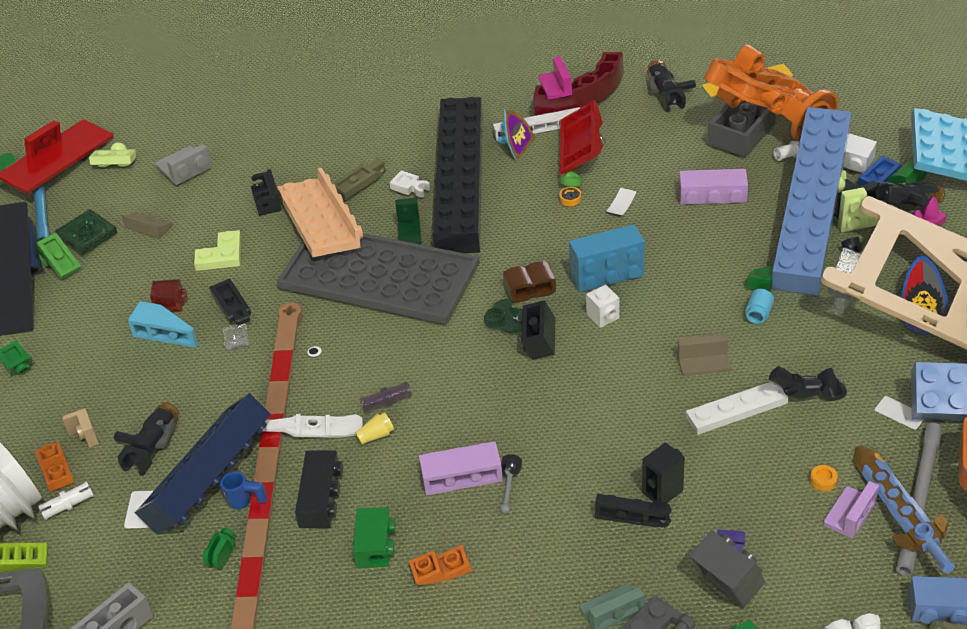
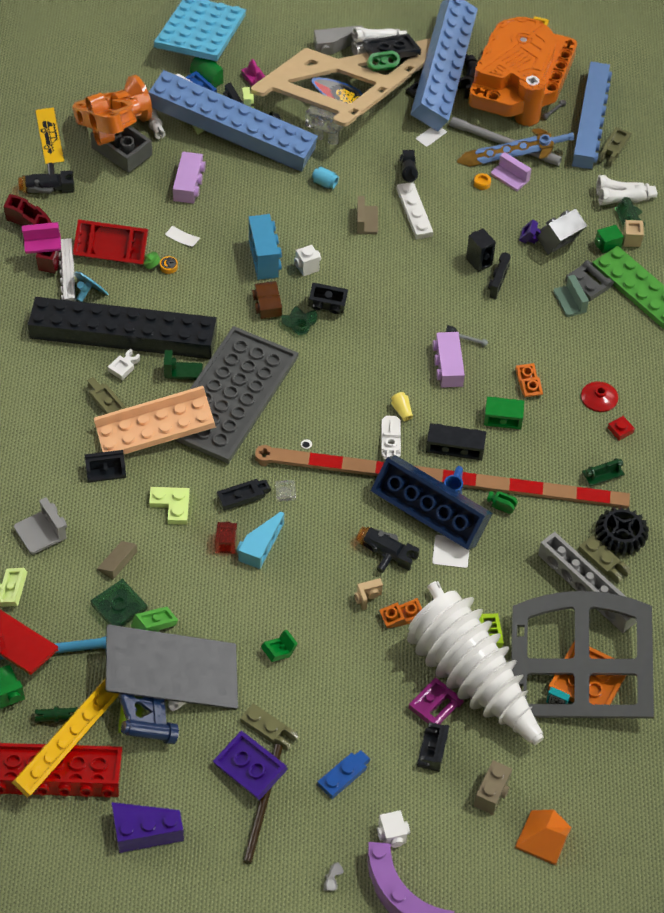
camera: 90 degrees left, 10 degrees up
(385, 397) = (371, 398): pin -> none
(760, 278) = (295, 171): green slope -> none
(909, 193) = (236, 72): black piece -> none

